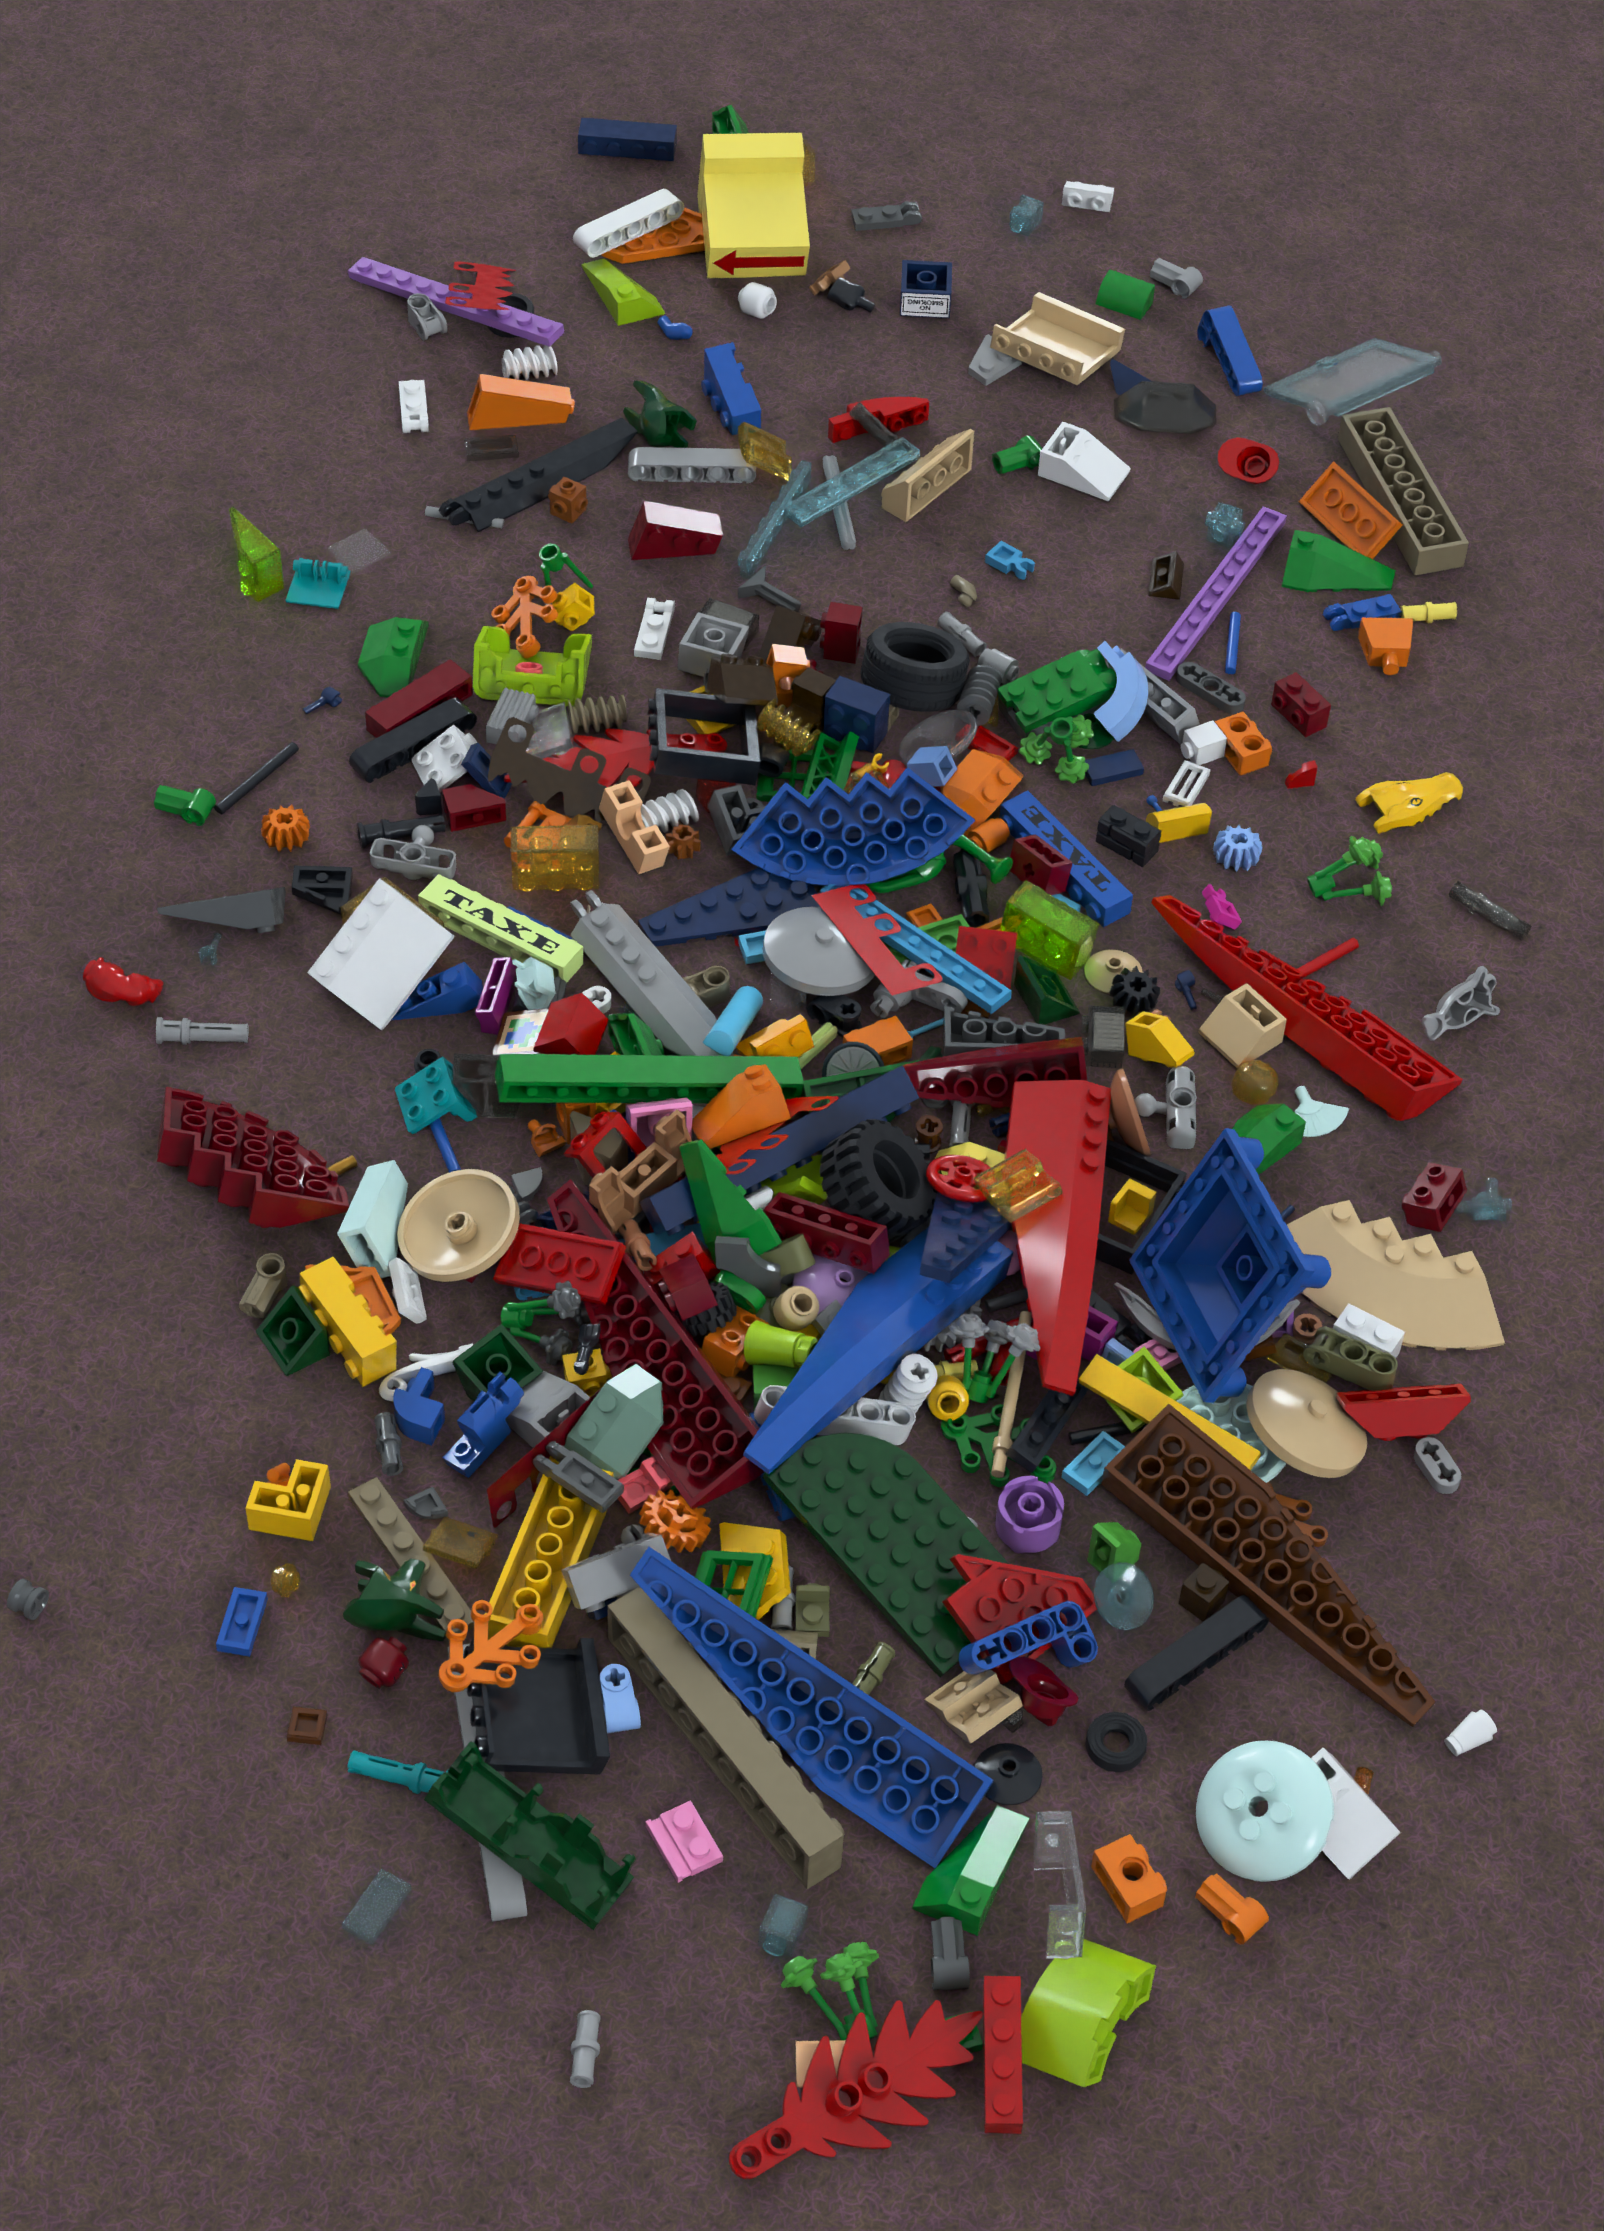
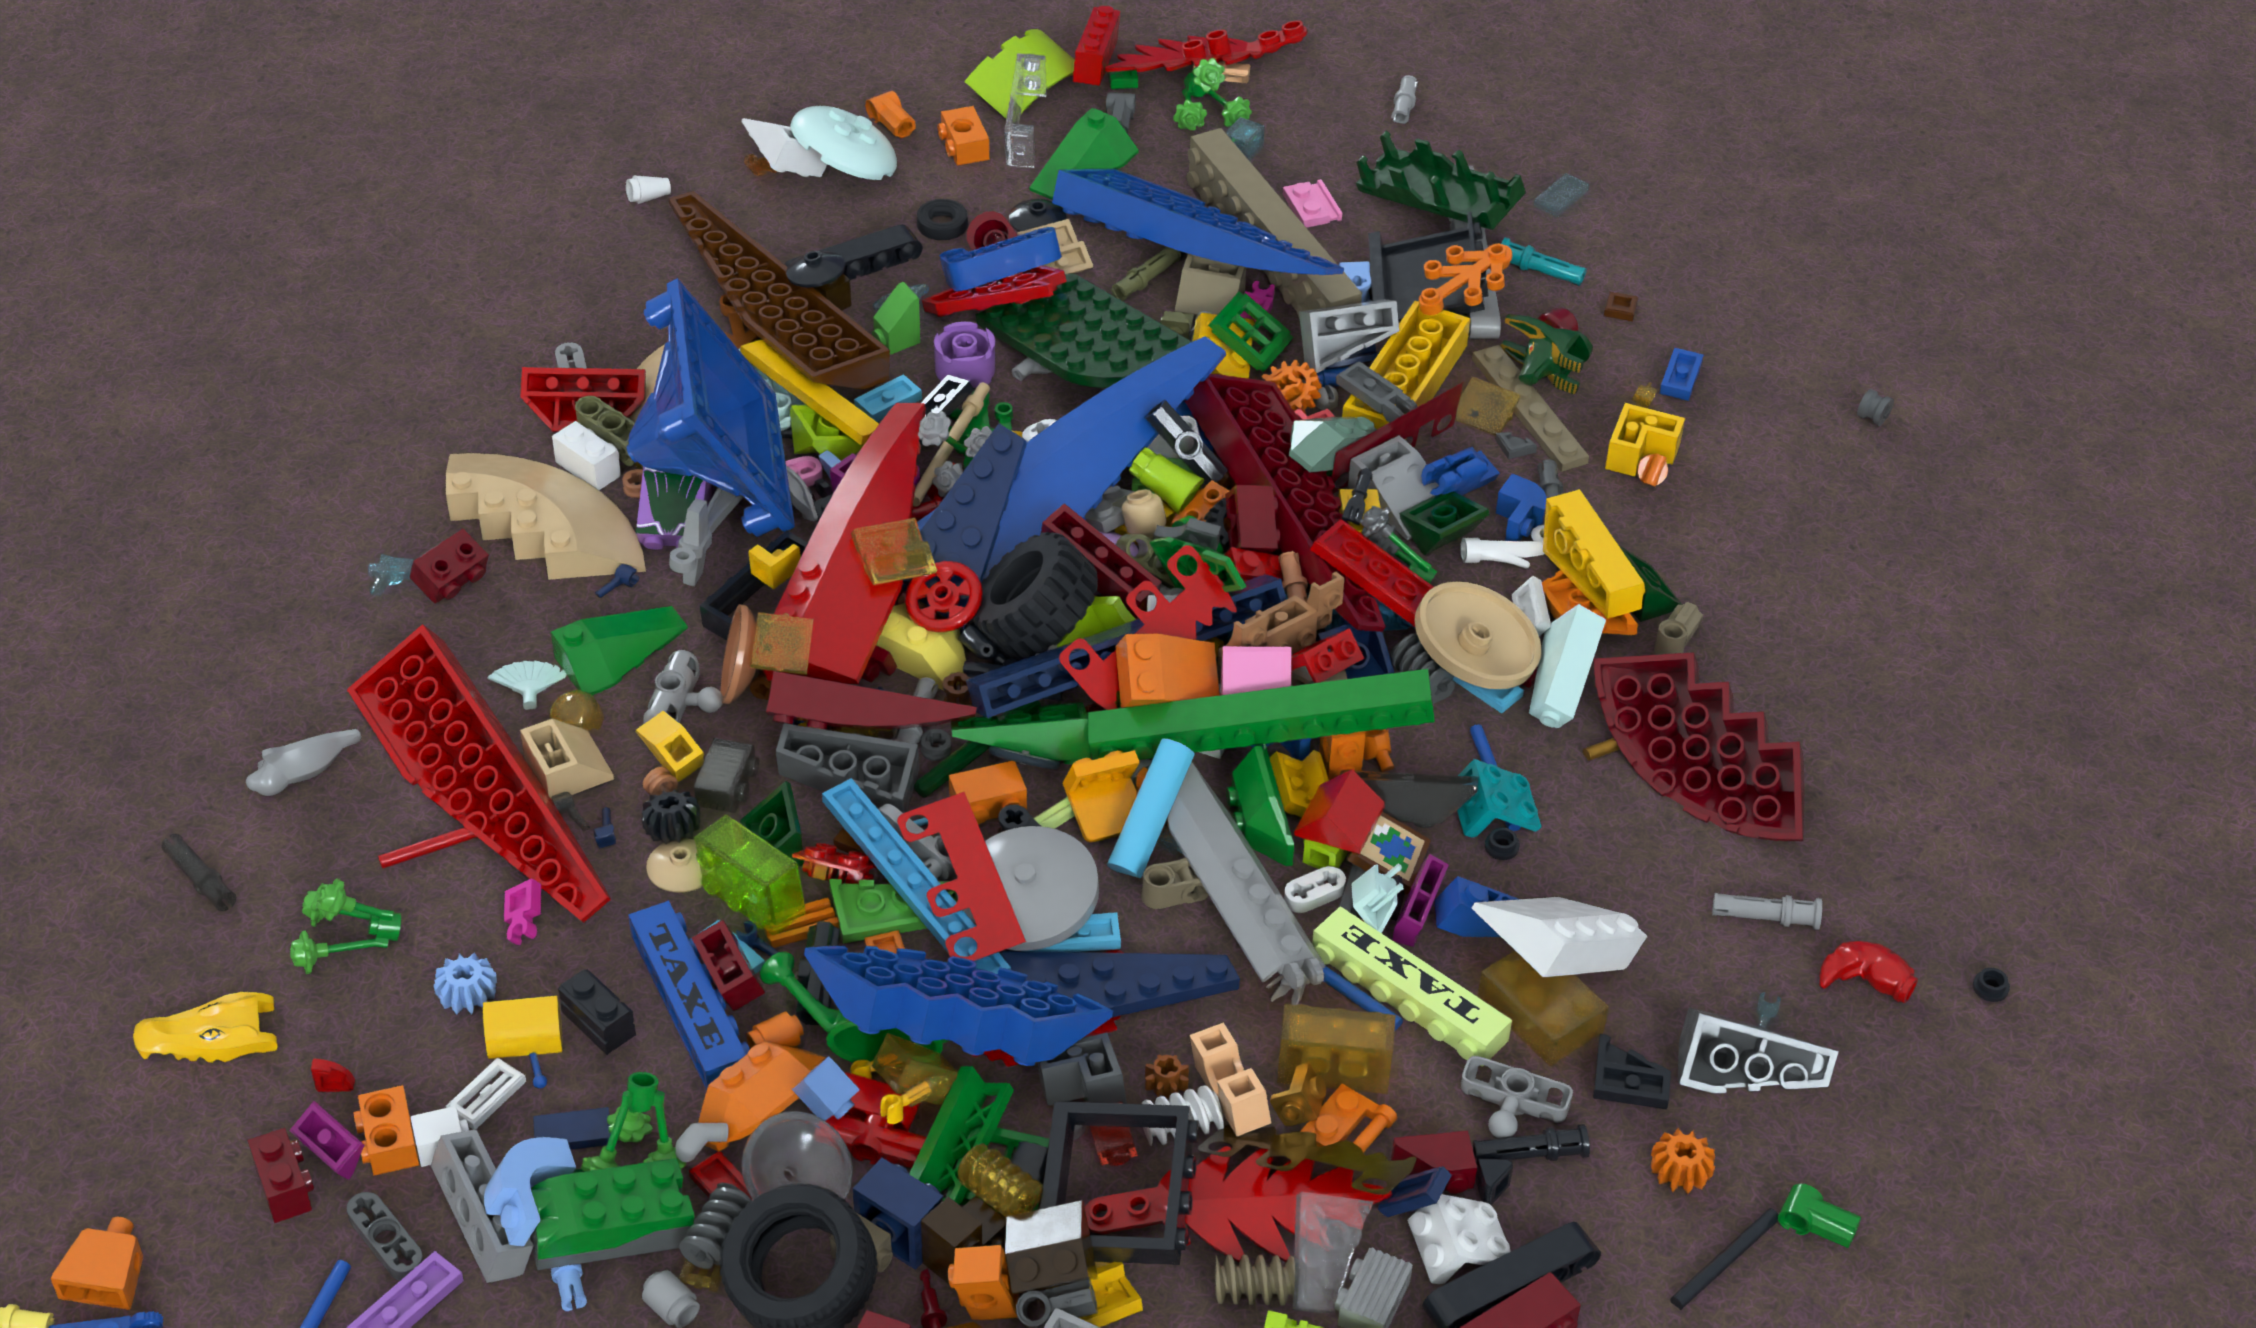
camera: 170 degrees left, 5 degrees down
(19, 993) = (1991, 977): none -> black plate
(767, 1366) = (1172, 430): none -> black piece
(1018, 741) = (697, 1136): none -> light grey arm
(1087, 1080) = (782, 643): none -> clear yellow piece
(1215, 1590) = (815, 269): none -> black dish
(1281, 727) = (328, 1140): none -> magenta slope

